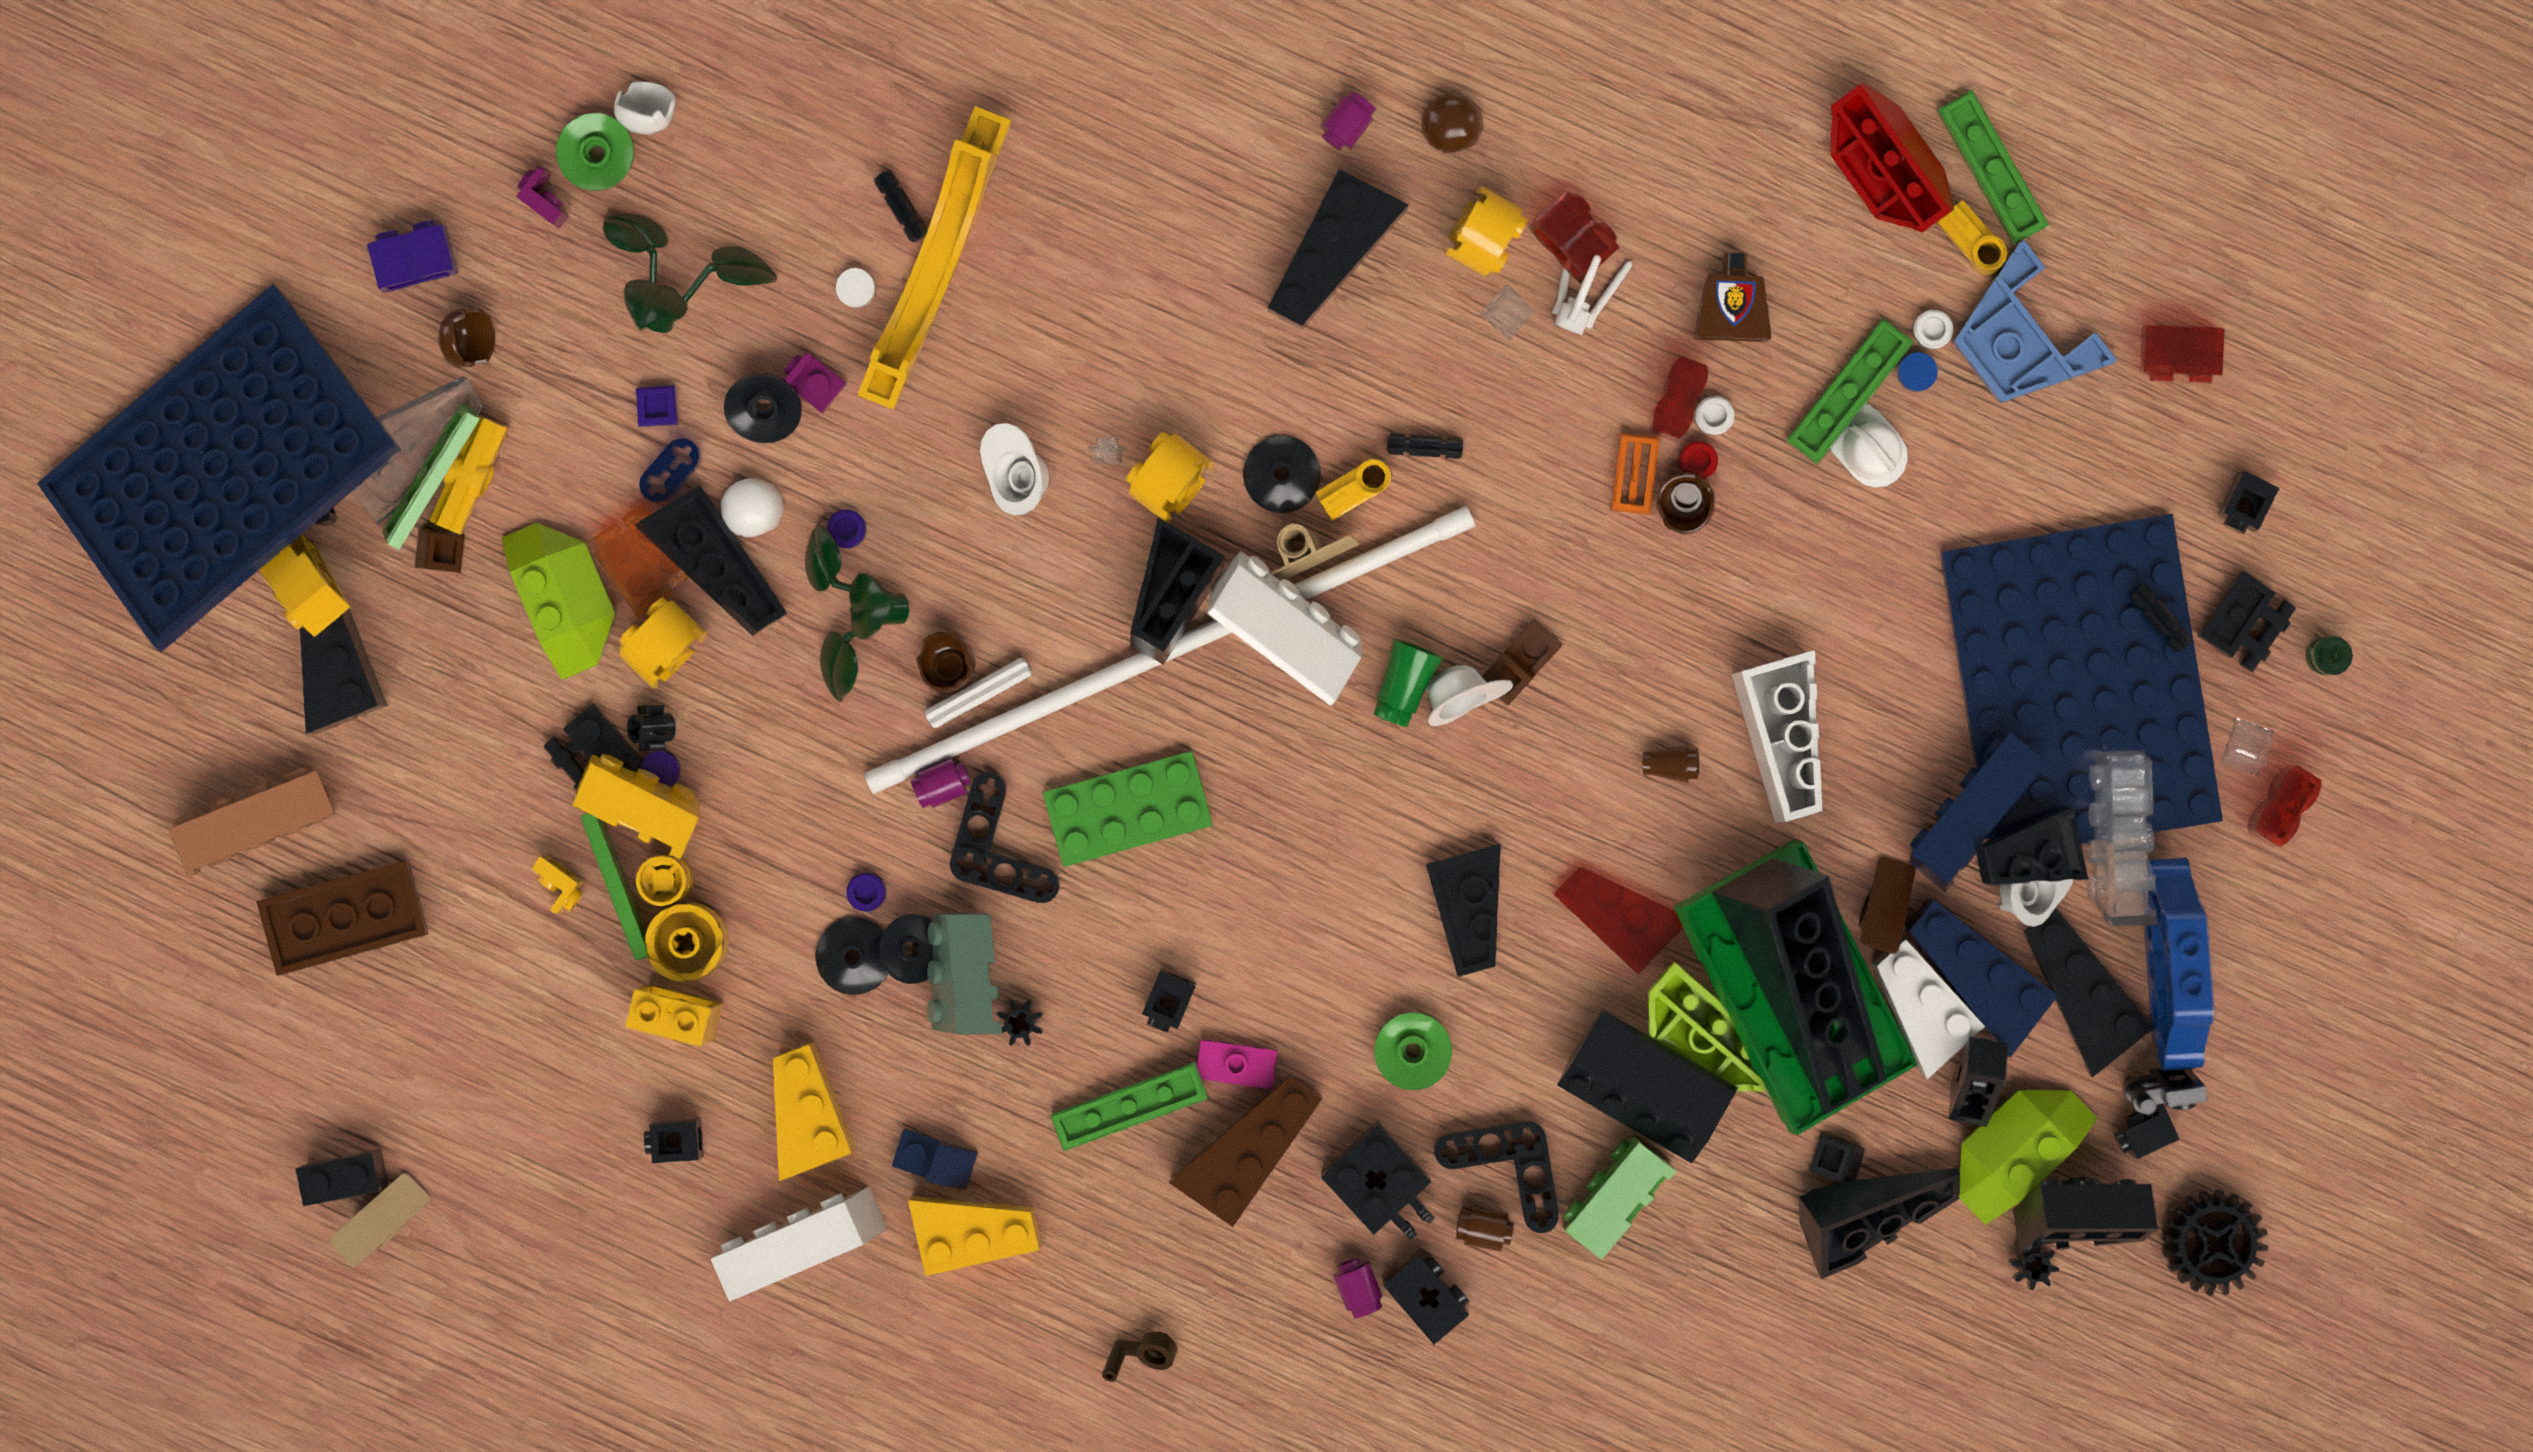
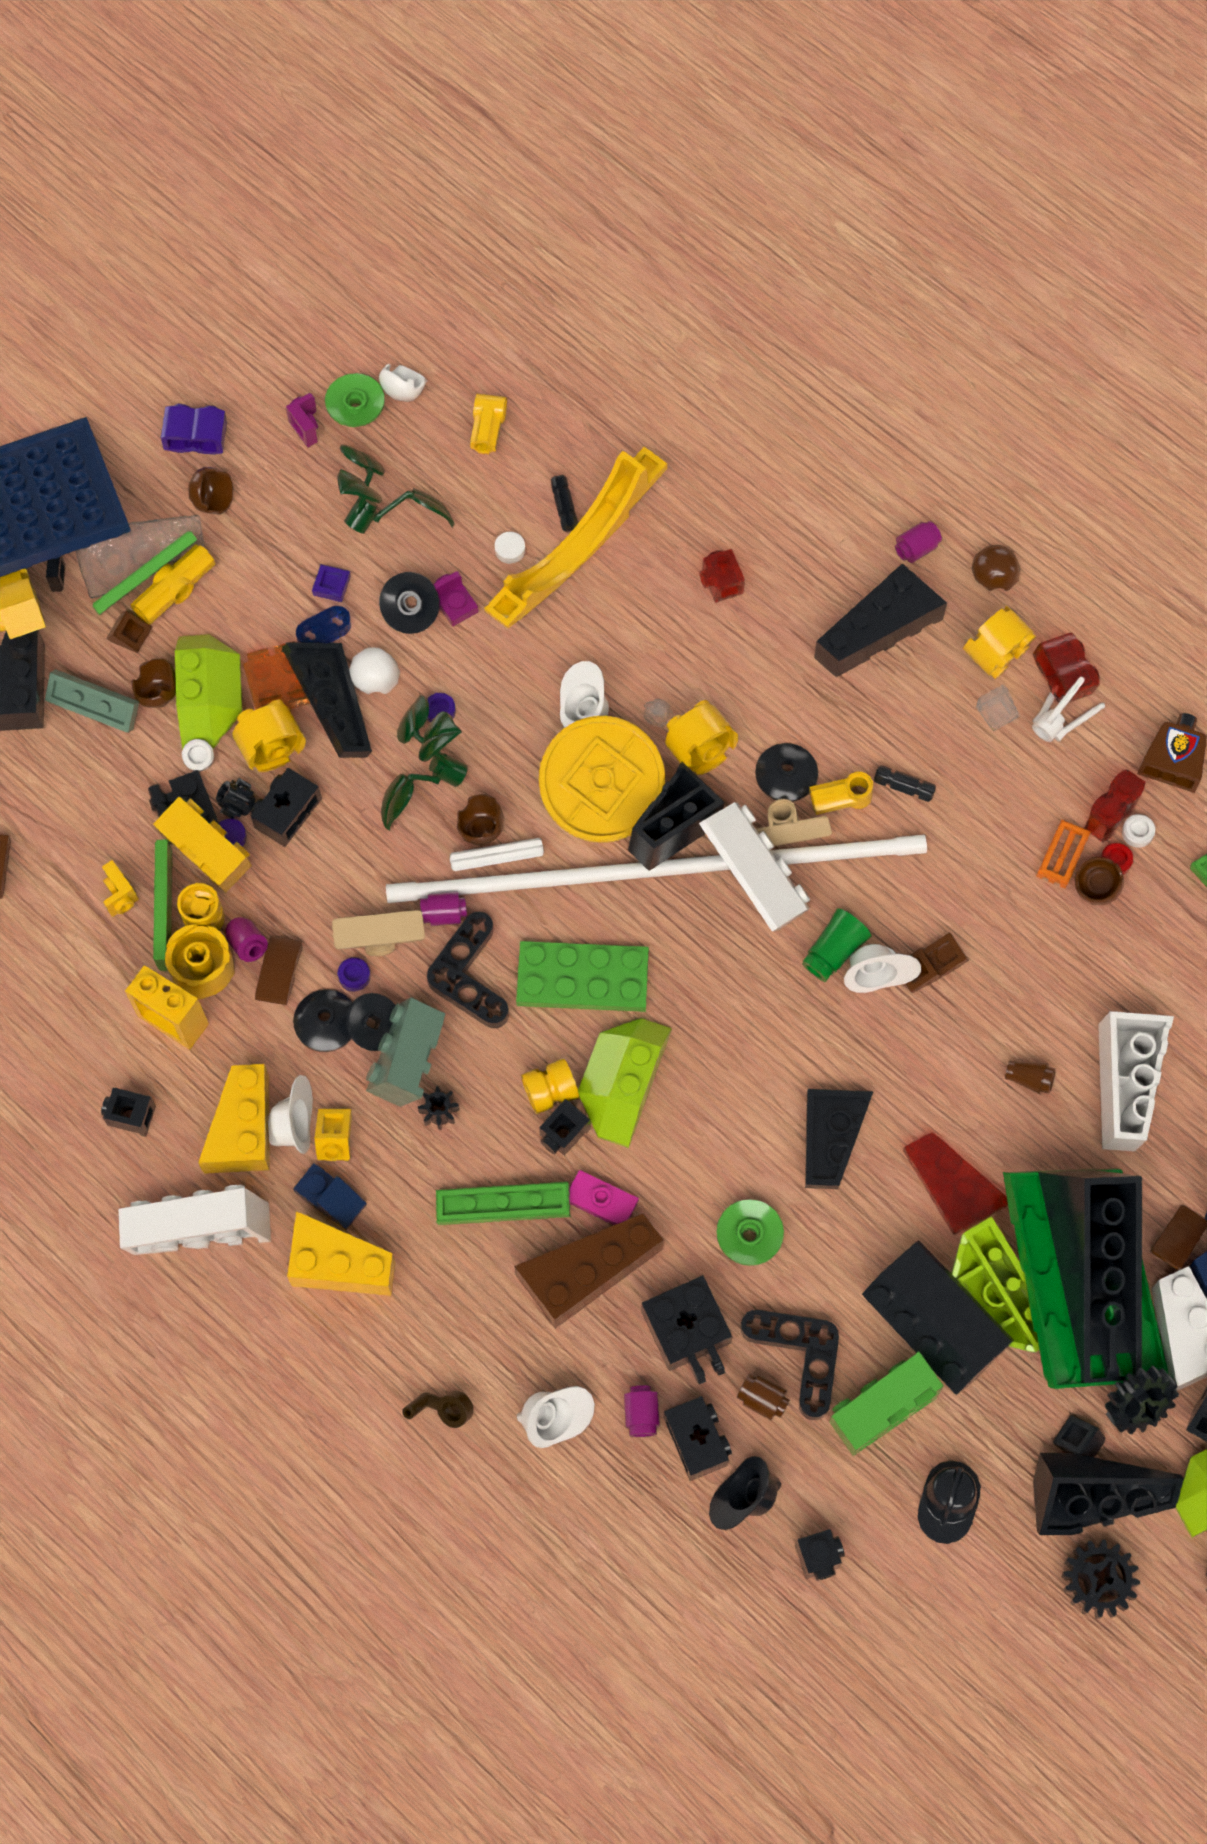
camera: 15 degrees right, 20 degrees down
(433, 659) = (91, 701): none -> sand green plate
(499, 615) = (155, 684): none -> reddish brown hair
(584, 684) = (197, 755): none -> white tile
(728, 704) = (284, 822): none -> black brick
(729, 896) = (246, 939): none -> magenta brick
(767, 116) = (488, 416): none -> yellow piece
(779, 918) = (278, 970): none -> reddish brown slope
(860, 1089) = (291, 1117): none -> white piece
(877, 840) = (378, 931): none -> tan piece
(912, 1089) = (333, 1134): none -> yellow bracket
(1069, 565) = (600, 778): none -> yellow plate
(1124, 244) = (722, 575): none -> clear red brick
(1136, 957) = (549, 1086): none -> yellow wheel
(1212, 914) = (621, 1077): none -> lime wedge
(1266, 1325) = (556, 1415): none -> white piece
(1496, 1342) = (744, 1494): none -> black piece
(1596, 1379) = (820, 1554): none -> black brick
(1716, 1271) = (949, 1502): none -> black piece
(1892, 1104) = (1141, 1400): none -> black gear
(1916, 1309) = (1114, 1584): none -> black gear

